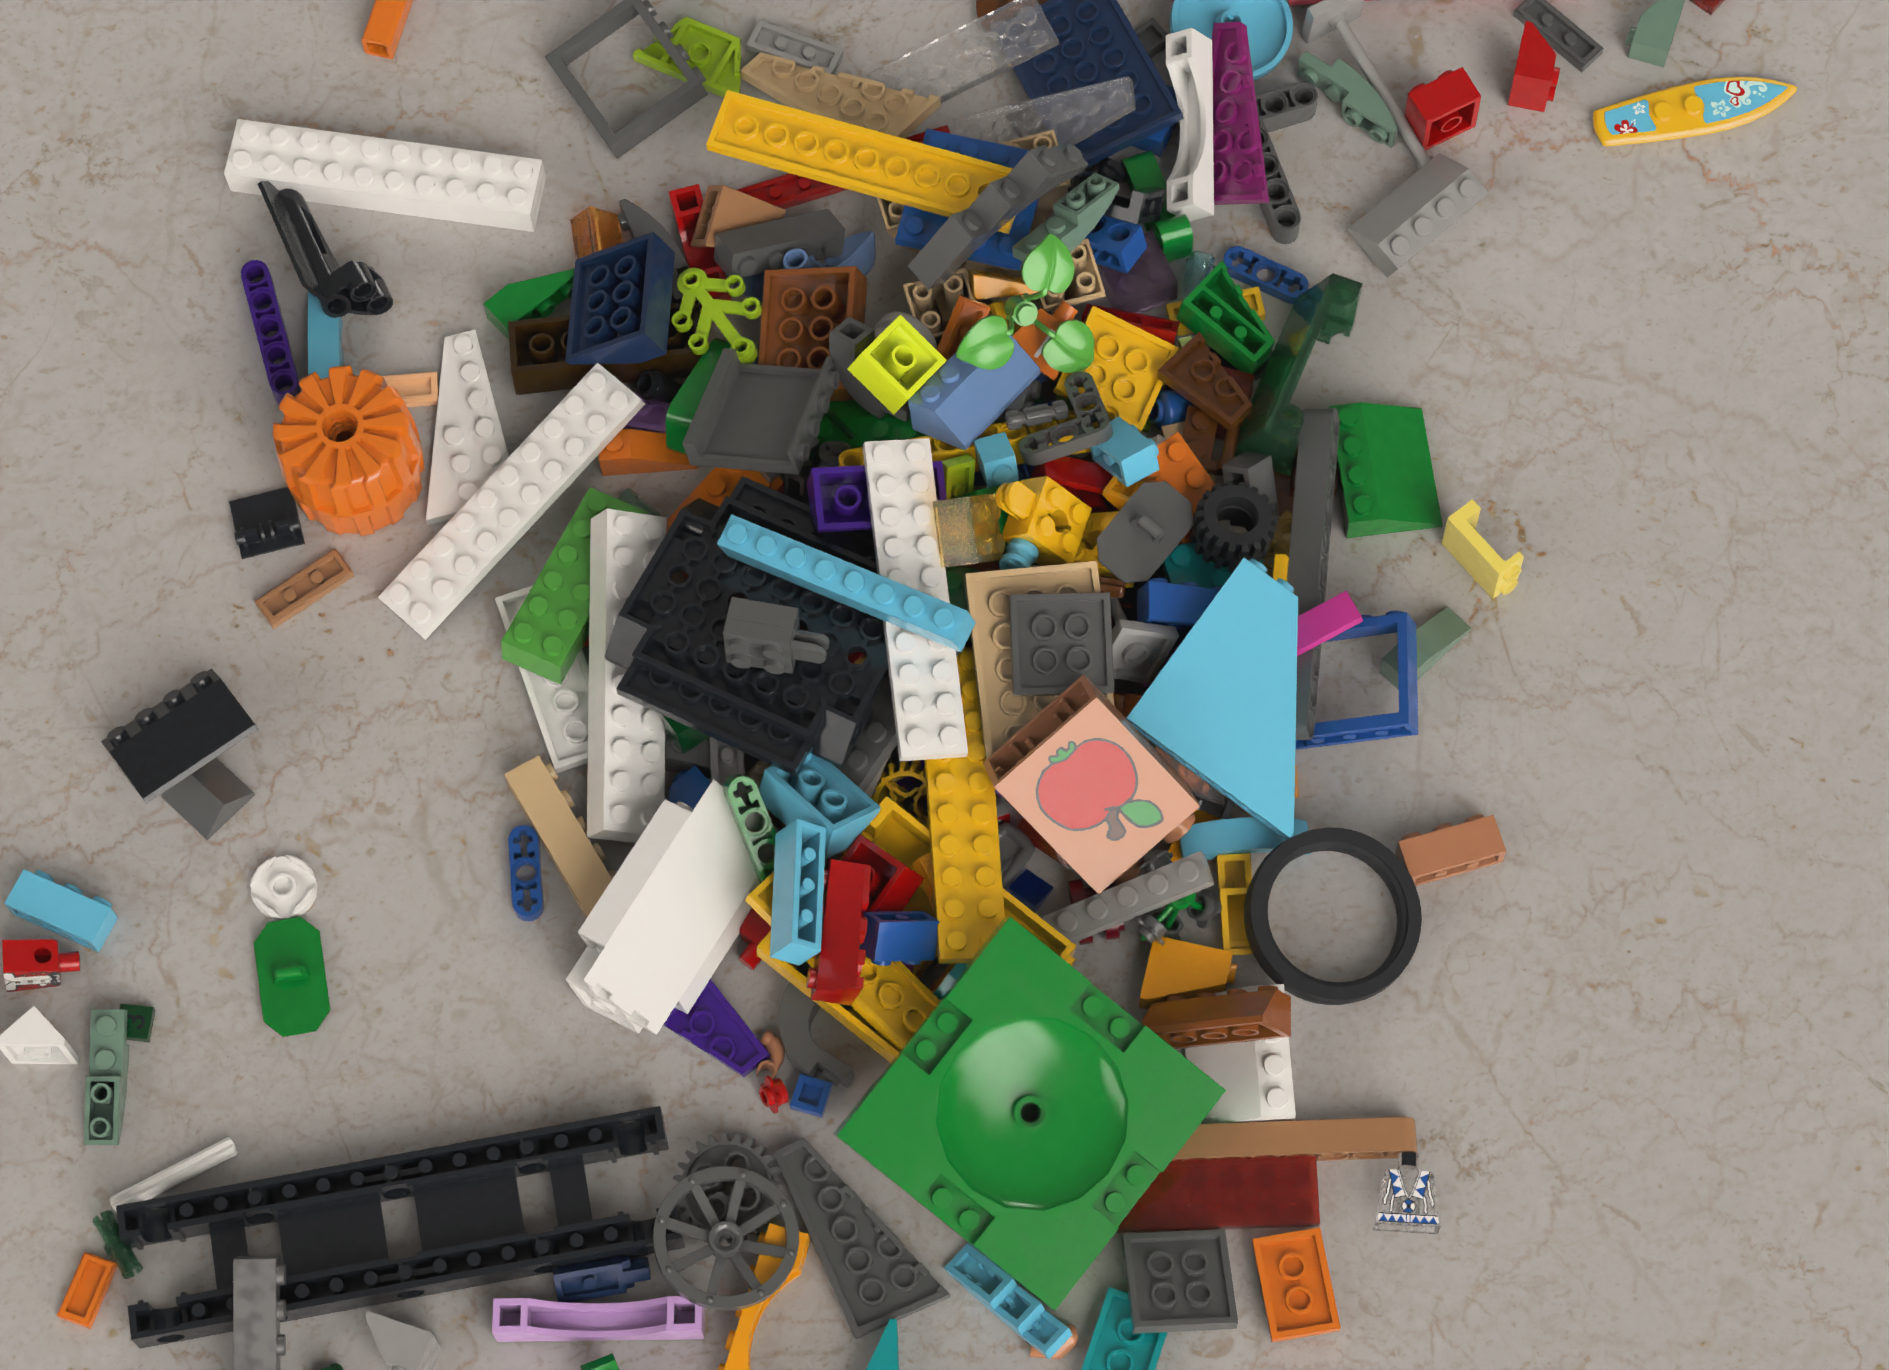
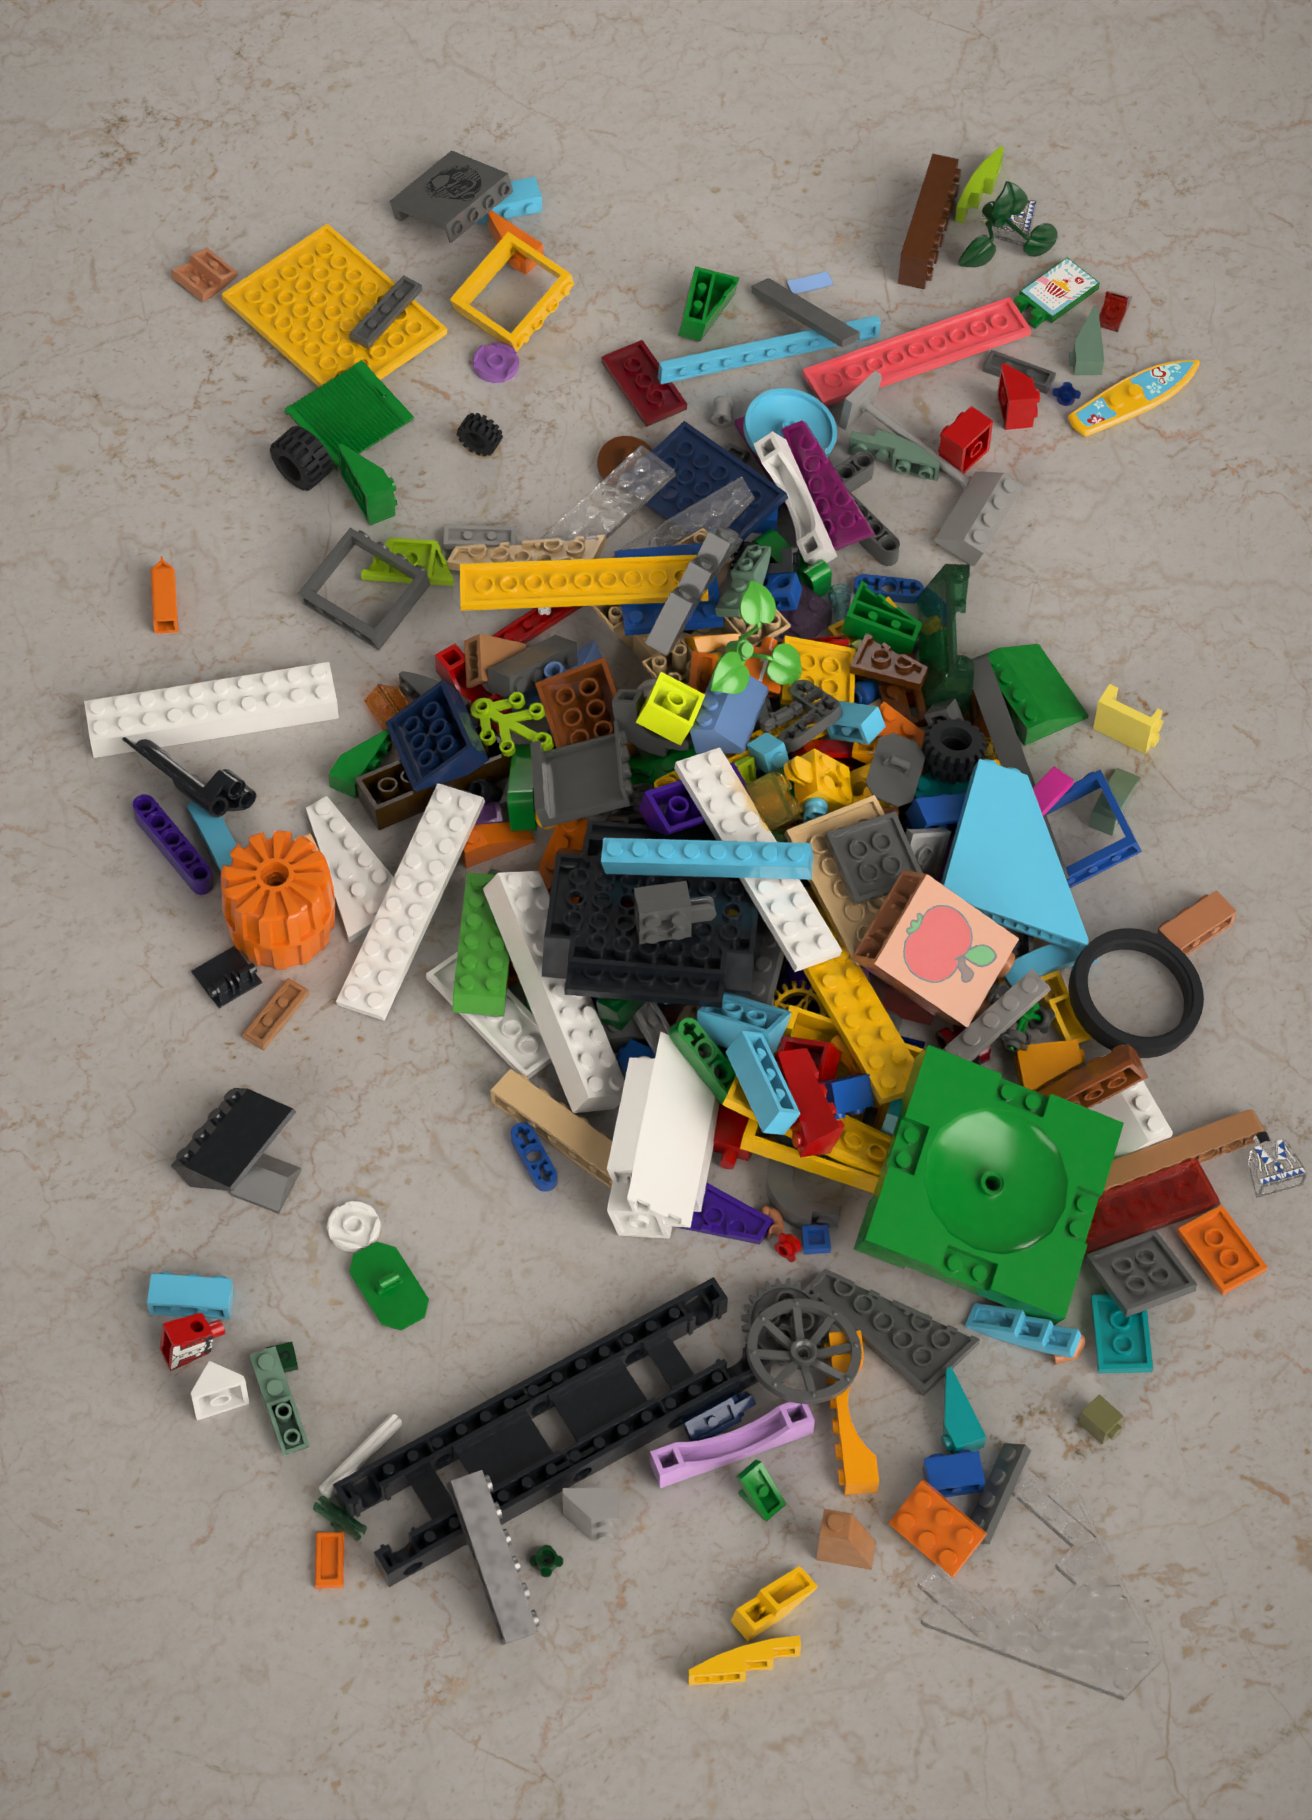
camera: 25 degrees left, 10 degrees down
(1601, 88) = (1066, 394): none -> clear blue plate

